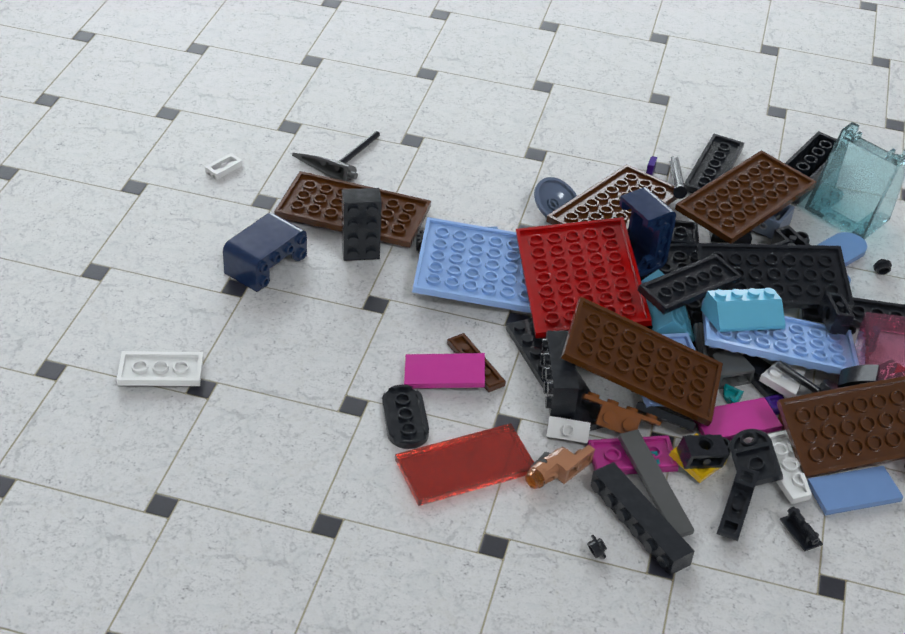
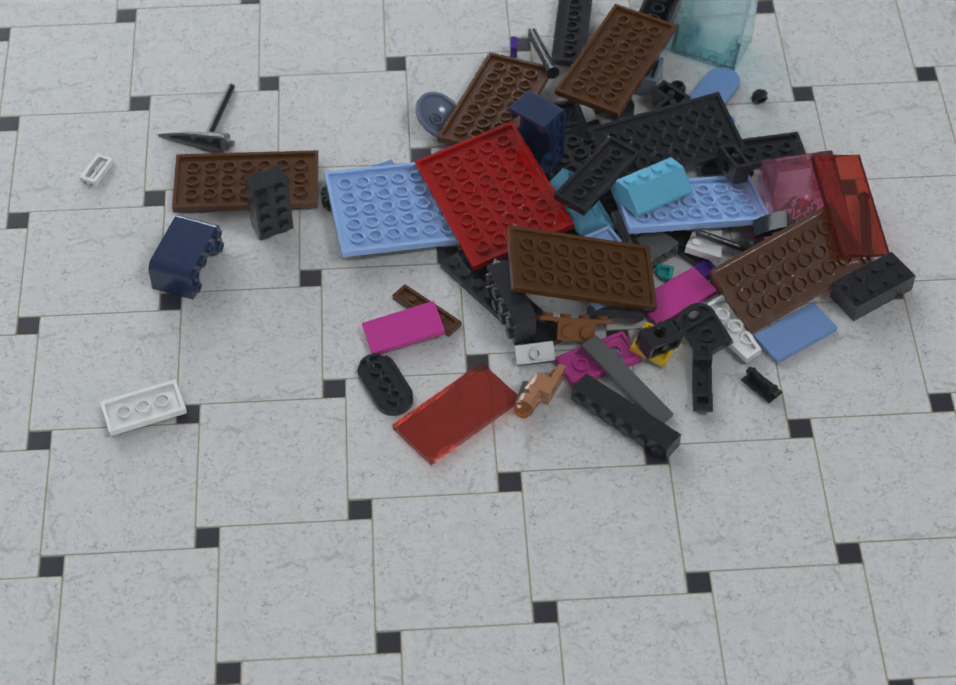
camera: 15 degrees left, 10 degrees up
(597, 547) = (598, 455): black plate -> none

